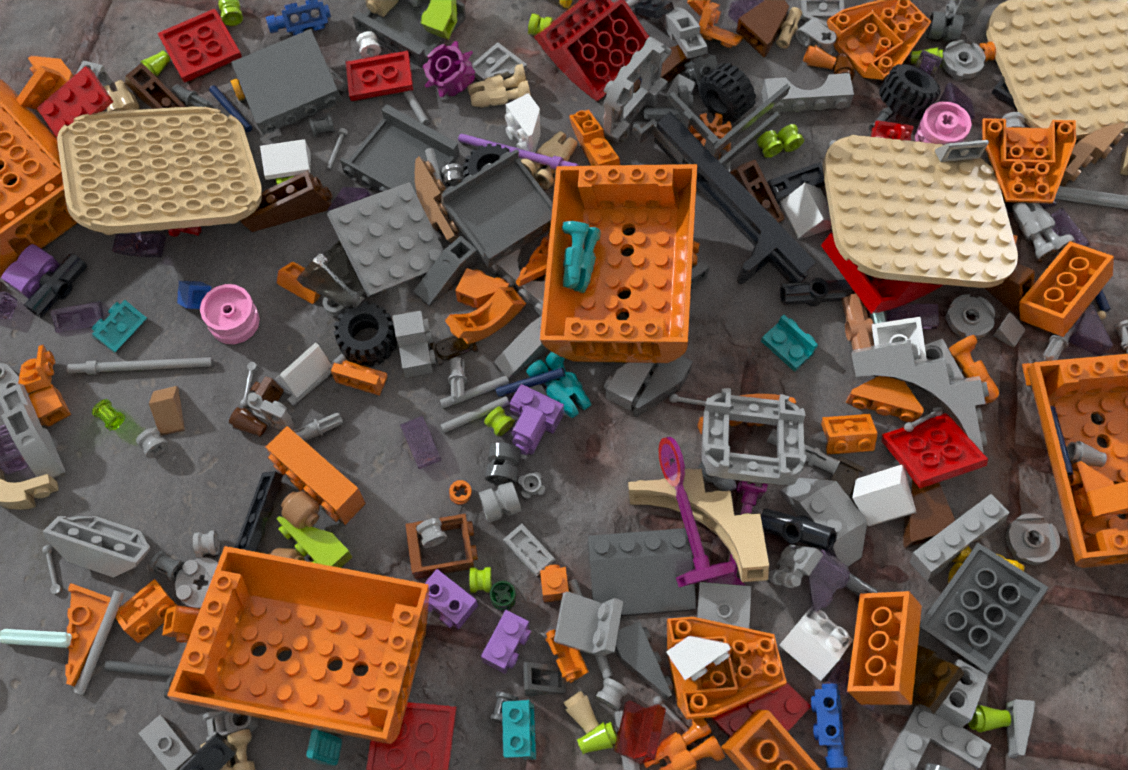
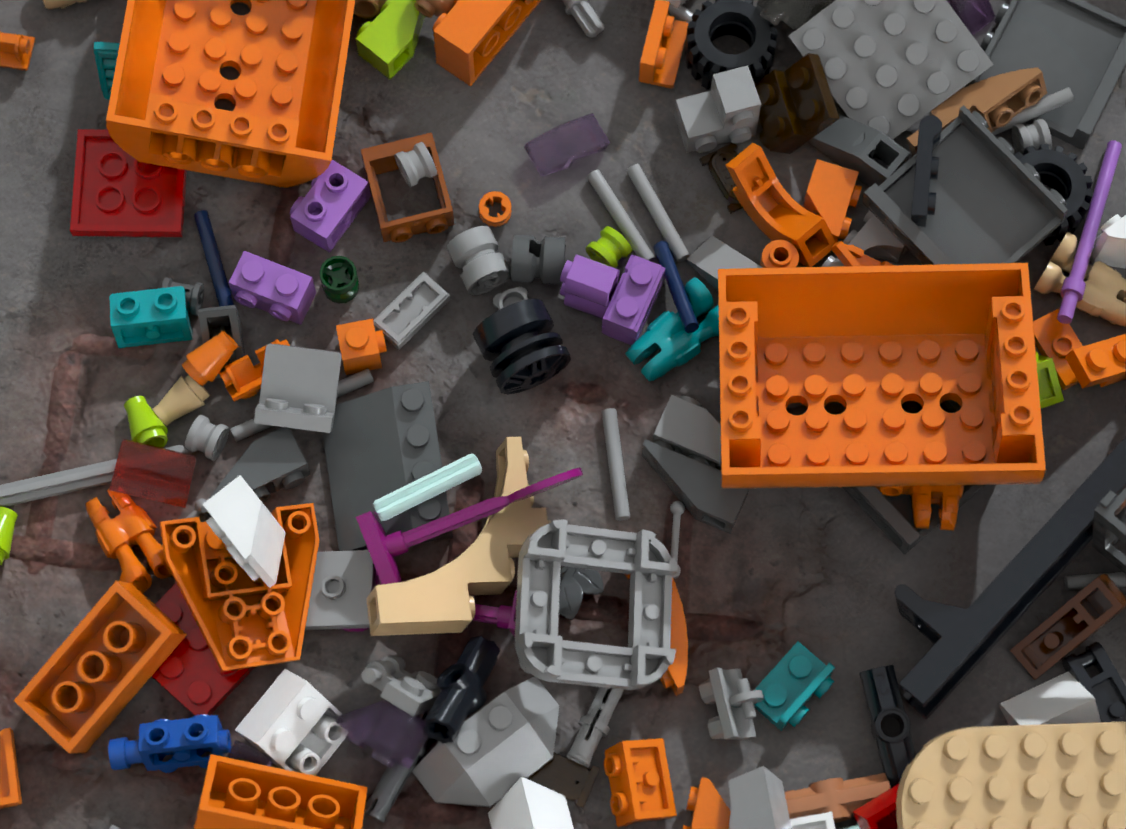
camera: 85 degrees right, 5 degrees up
(416, 293) = (795, 105): none -> dark brown plate
(457, 379) = (671, 183): light grey axle -> none
(478, 685) = (213, 258): none -> dark blue bar
(479, 223) = (926, 169): none -> black plate
(480, 579) = (362, 246): lime wheel -> none
(519, 319) = (779, 255): none -> orange brick
(558, 685) = (209, 358): none -> orange cone
(567, 476) = (521, 346): none -> black wheel
(579, 262) = (868, 324): teal piece -> none
(643, 431) = (615, 464): none -> light grey bar
(667, 538) = (427, 487): none -> light aqua axle
(803, 371) = (733, 703): none -> light grey hips

